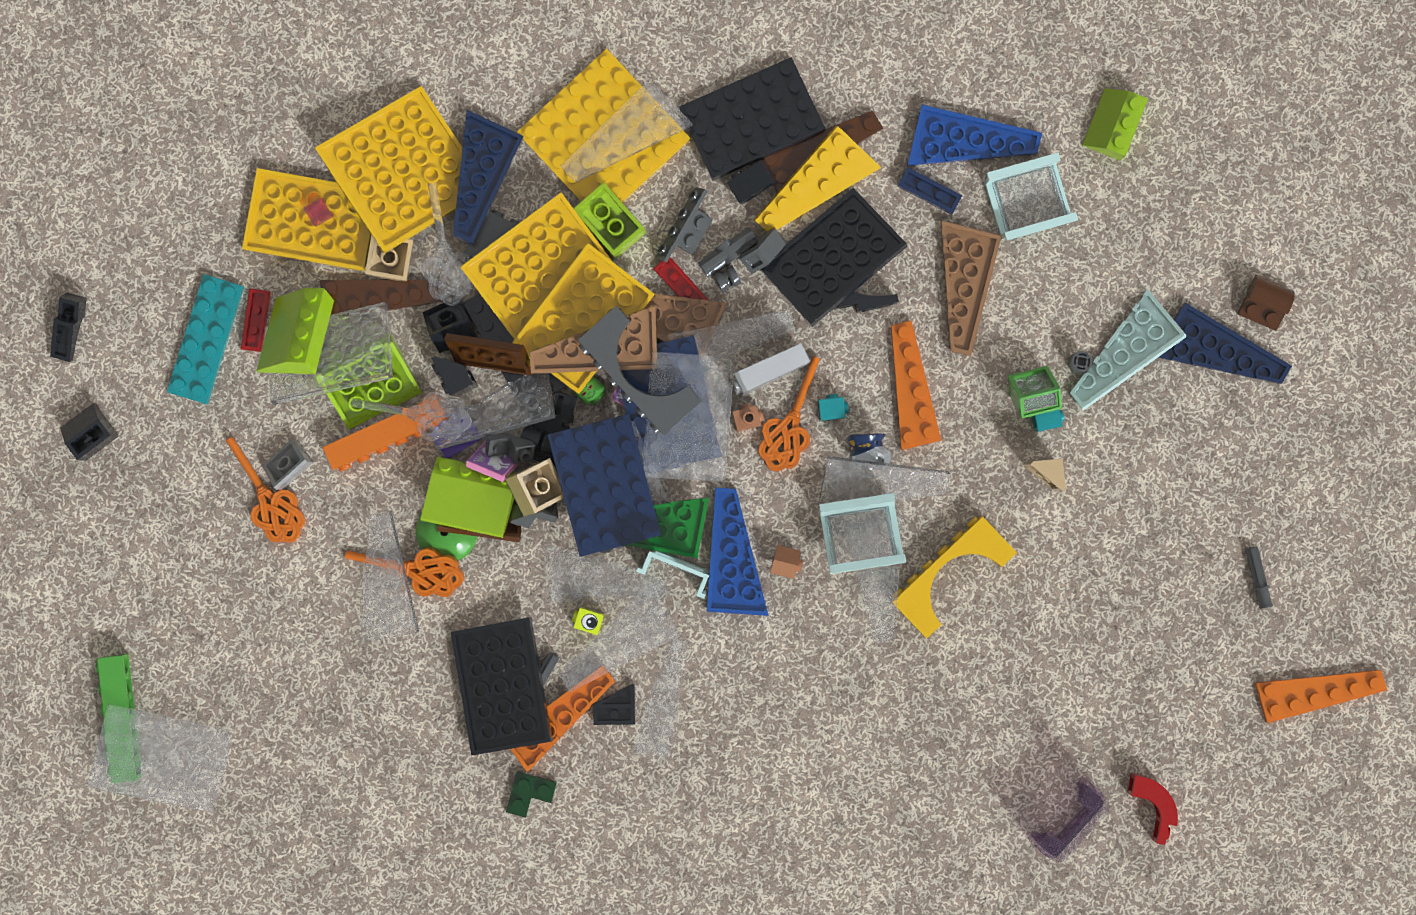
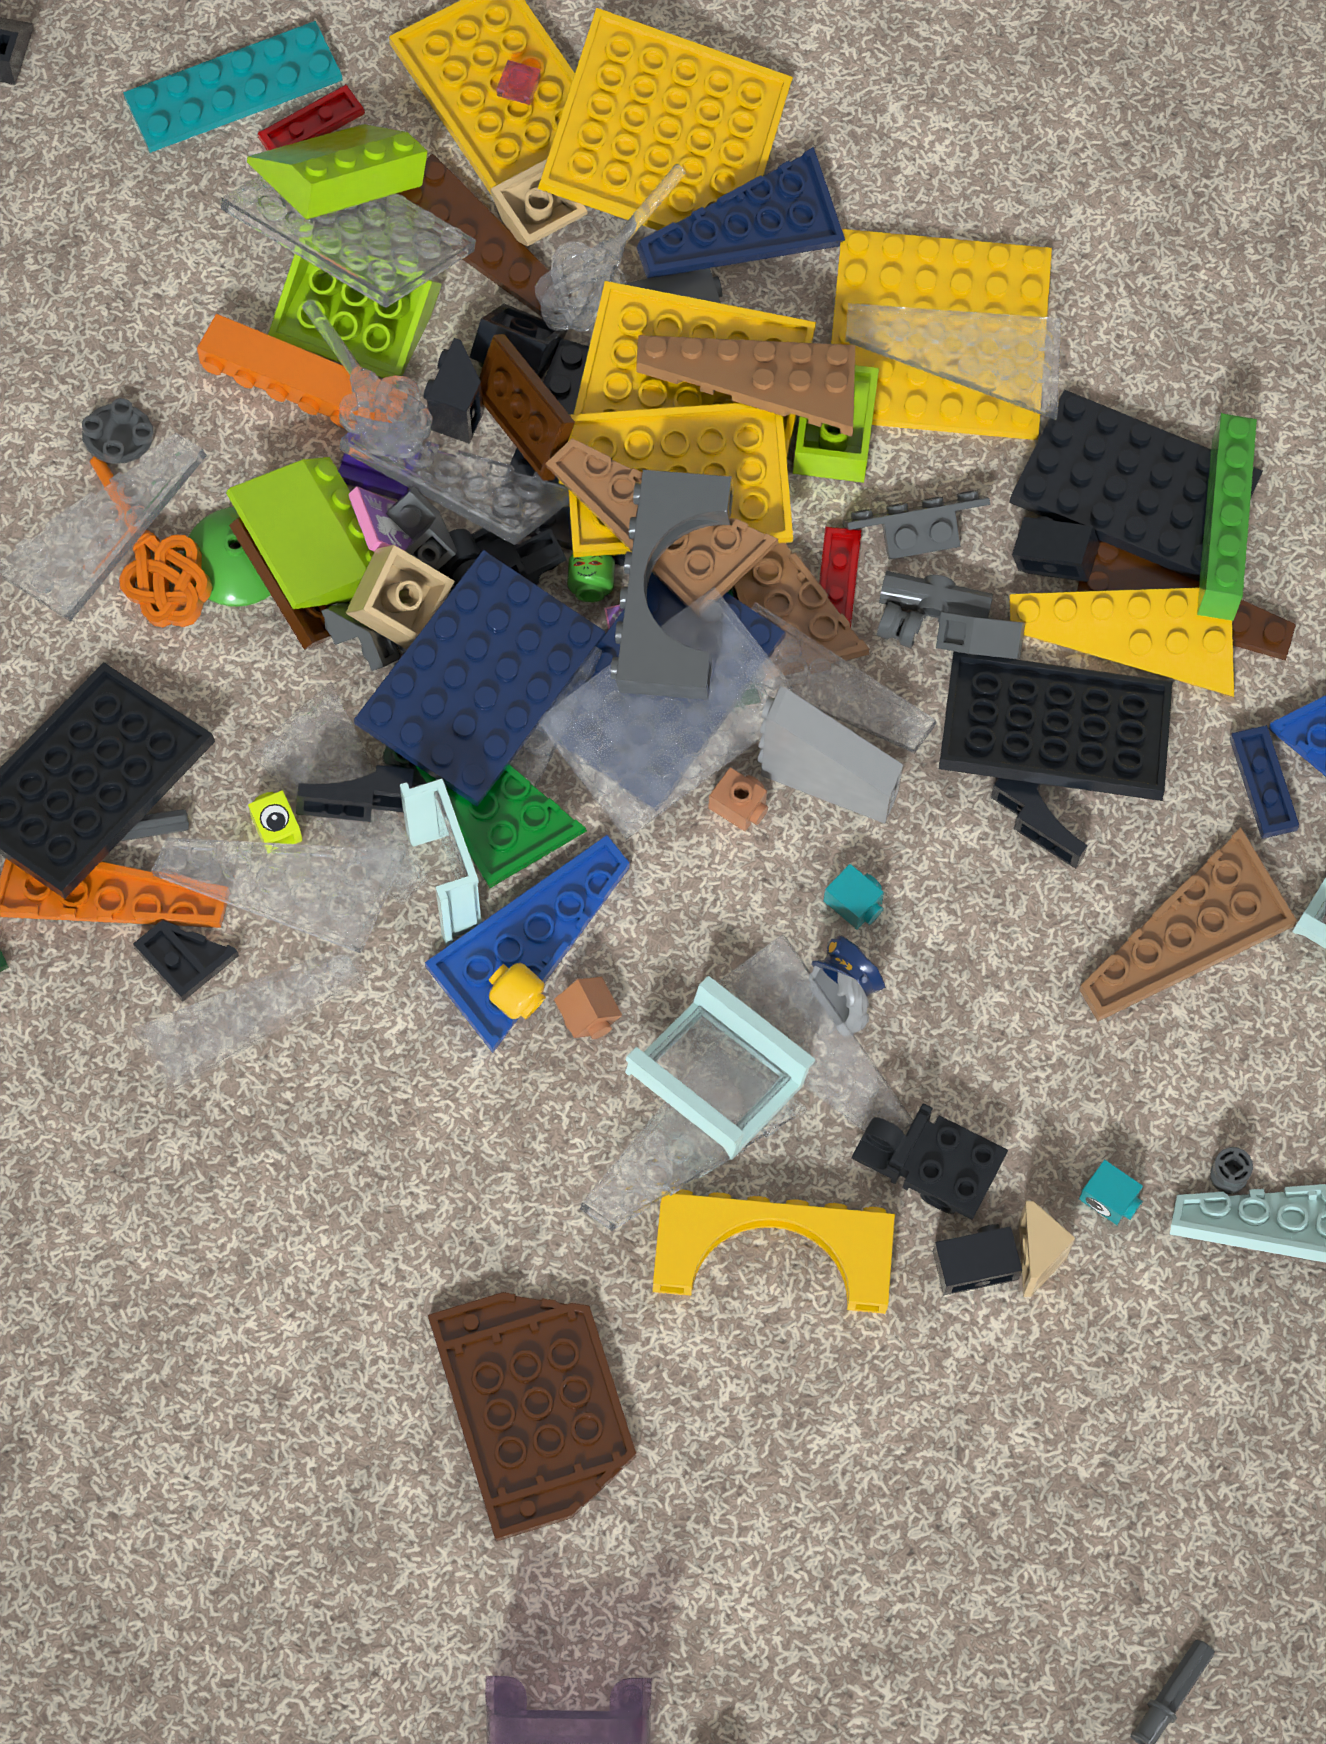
camera: 45 degrees right, 20 degrees down
(264, 507) = (70, 328): orange piece -> none
(286, 465) = (152, 300): light grey slope -> none
(341, 535) = (117, 432): none -> dark grey dish
(571, 237) = (767, 375): none -> medium nougat wing
(616, 563) = (355, 797): none -> black slope
(756, 587) = (516, 991): none -> yellow head
(794, 415) = (742, 860): orange piece -> none
(807, 98) = (1227, 517): none -> bright green brick
(914, 403) = (966, 999): orange wing -> none
(931, 726) = (532, 1406): none -> reddish brown plate
(974, 478) = (937, 1159): none -> black plate
(1027, 498) = (977, 1260): none -> black brick
(1034, 392) = (1130, 1135): piece -> none

